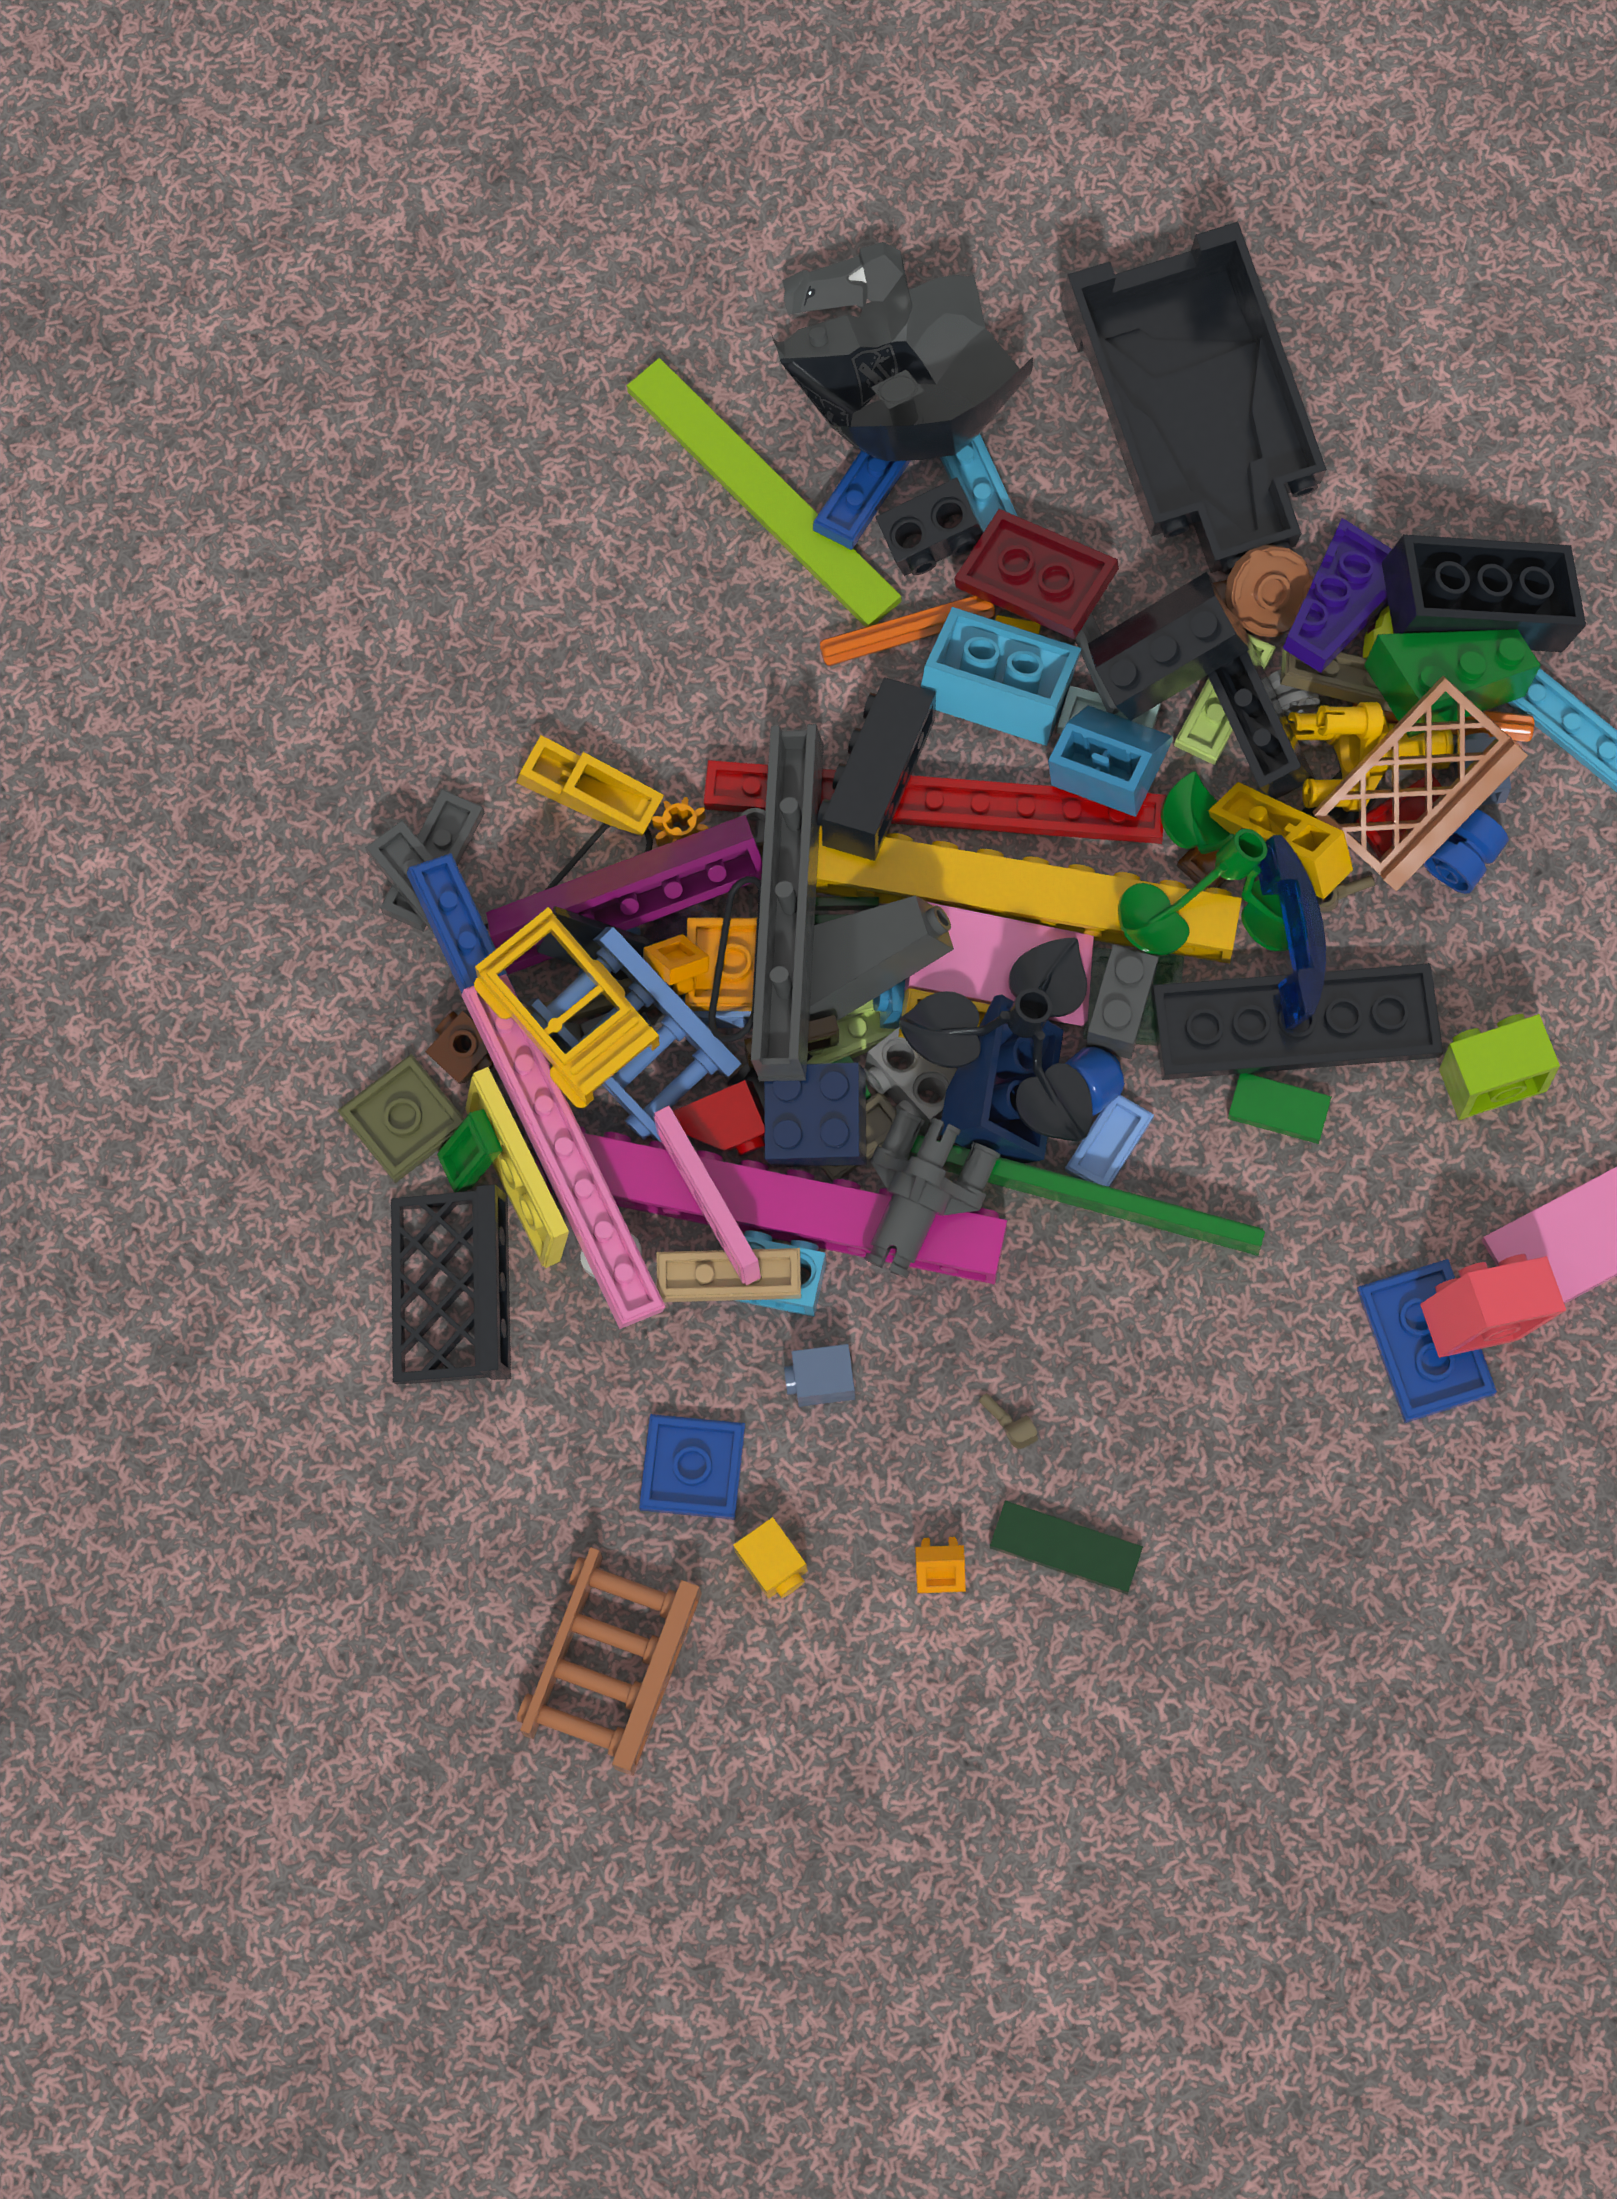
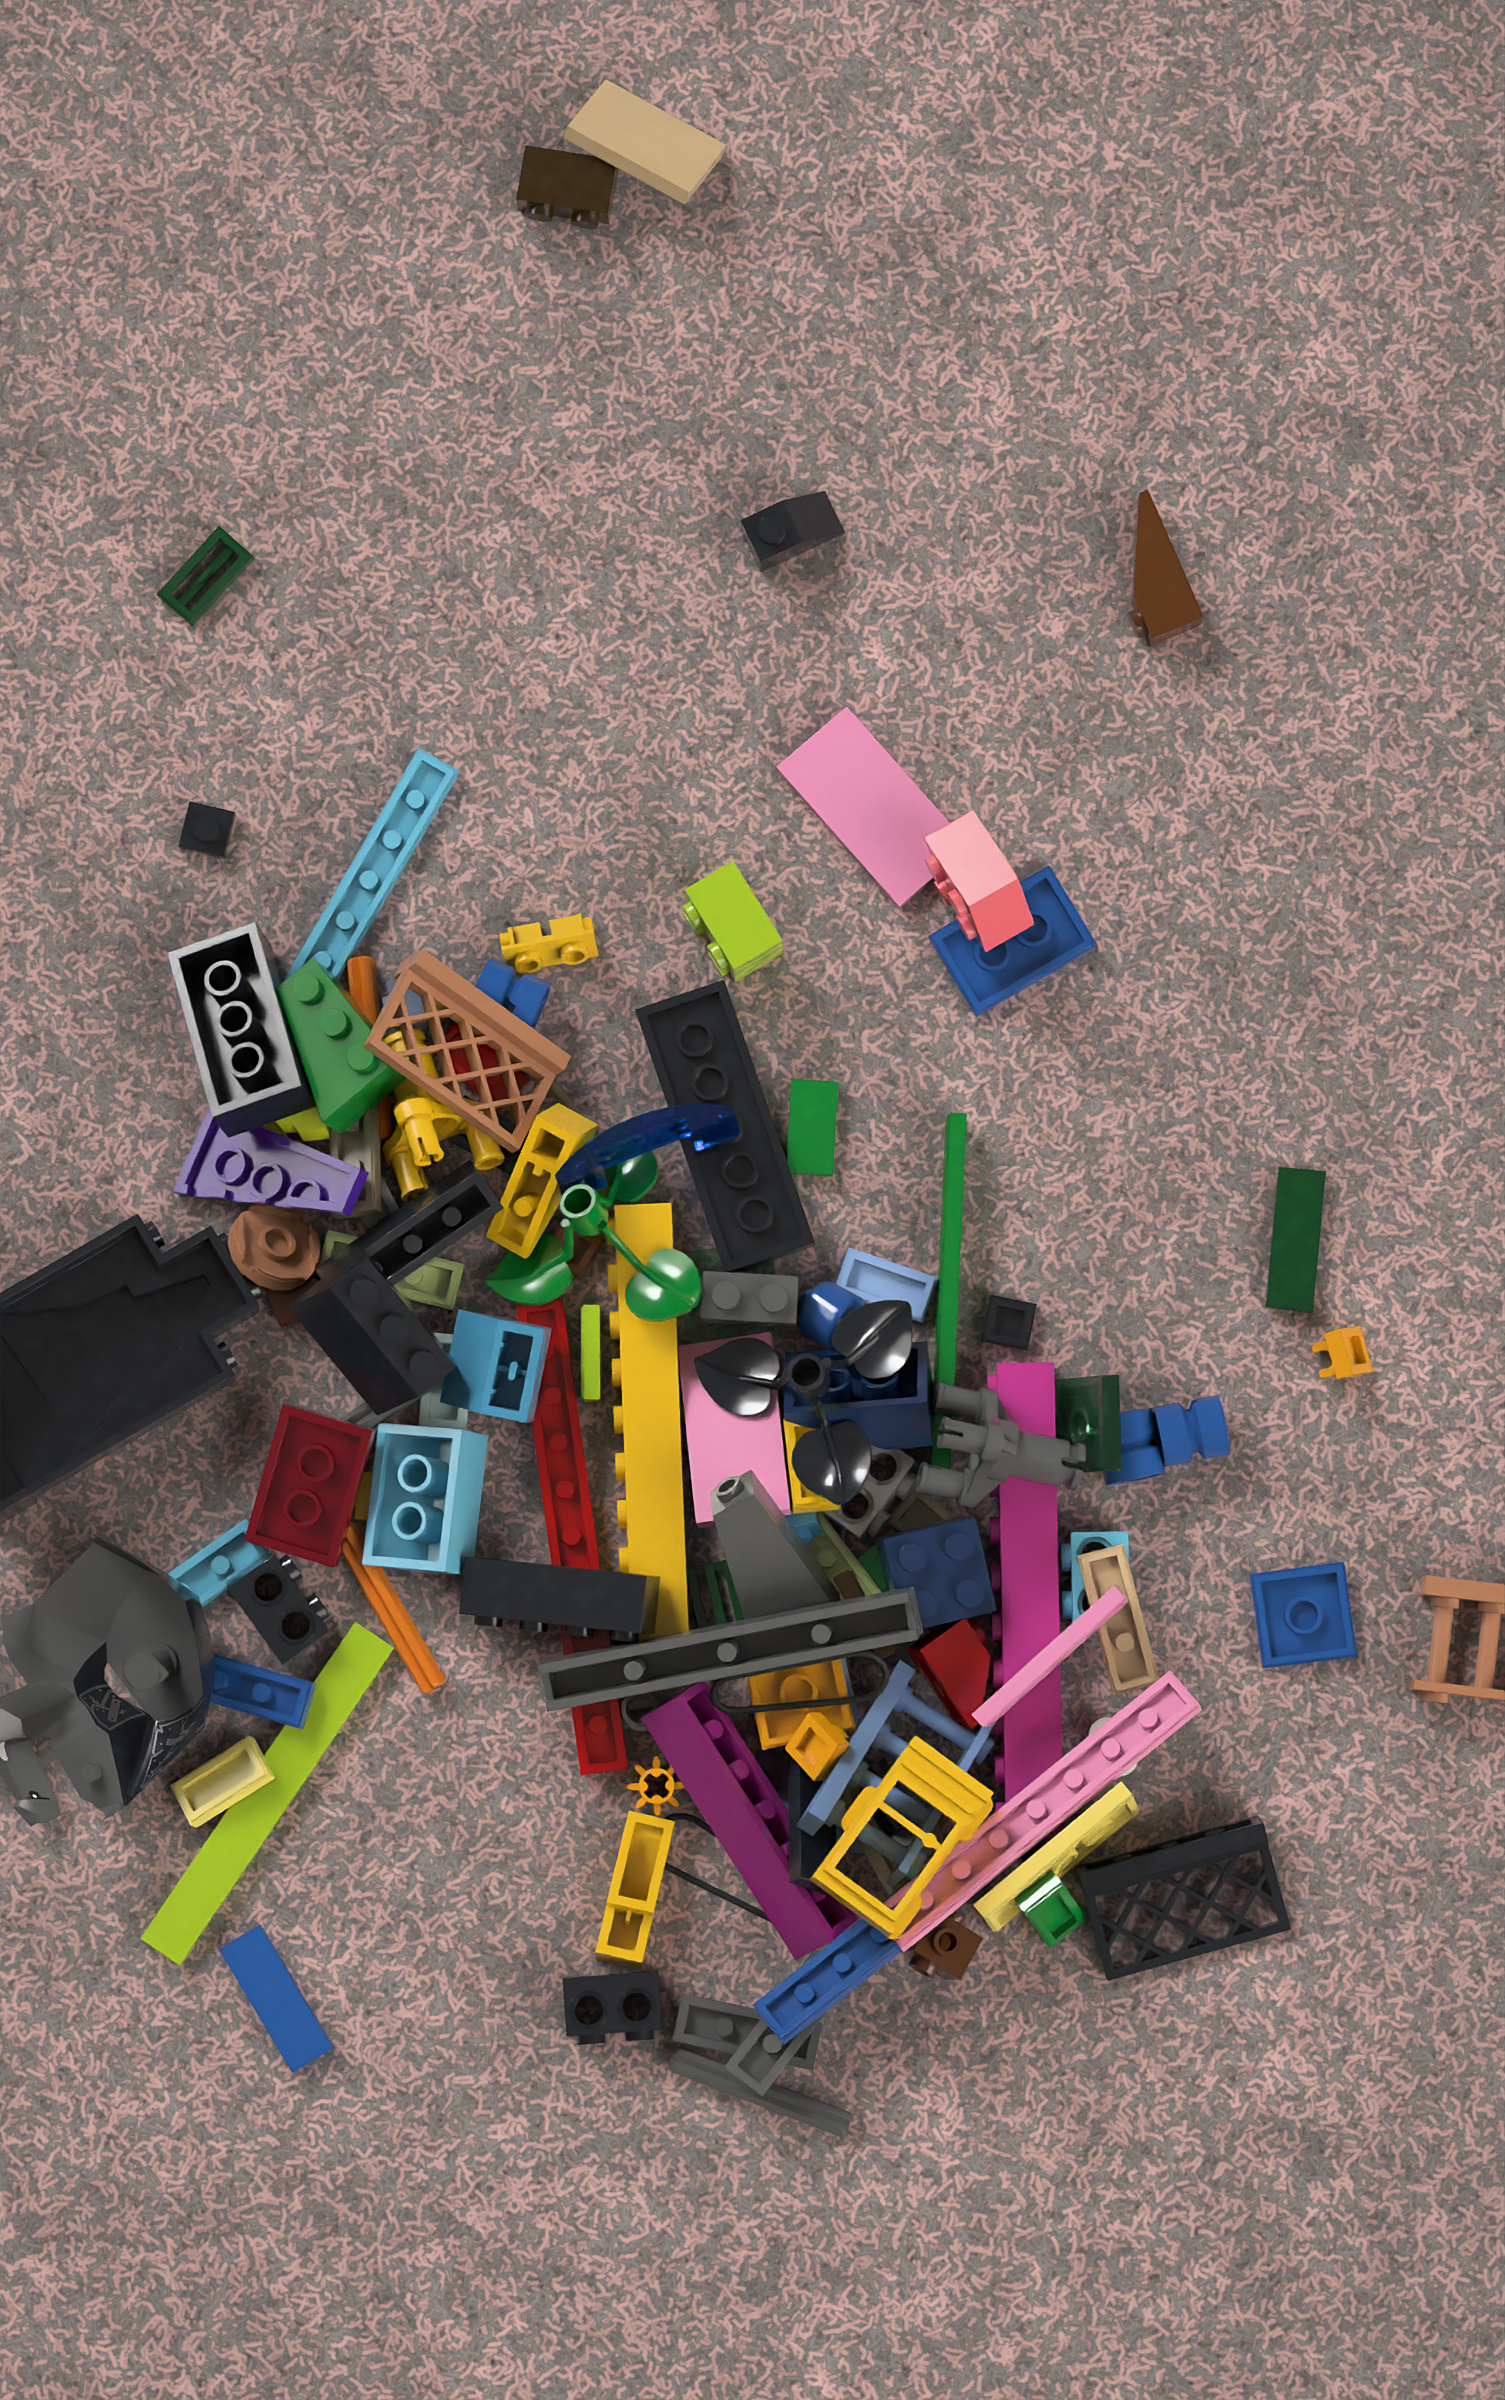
camera: 105 degrees left, 10 degrees up
(366, 872) = (776, 2098): none -> dark grey axle
(402, 1118) = (1022, 1991): olive tile -> none
(497, 745) = (611, 1992): none -> black brick
(575, 463) = (276, 1998): none -> blue tile
(771, 1559) = (1378, 1514): yellow brick -> none
(782, 453) = (222, 1781): none -> light yellow tile
(820, 1375) = (1188, 1510): sand blue brick -> none
(896, 1331) = (1138, 1456): none -> blue wheel
(898, 1392) = (1191, 1430): none -> blue wheel
(927, 1293) = (1090, 1415): none -> clear green tile
(1020, 1432) = (1195, 1308): dark tan hand -> none
(1046, 1250) = (1008, 1322): none -> black tile
(1103, 853) = (591, 1354): none -> lime tile
(1509, 880) = (570, 943): none -> yellow hinge

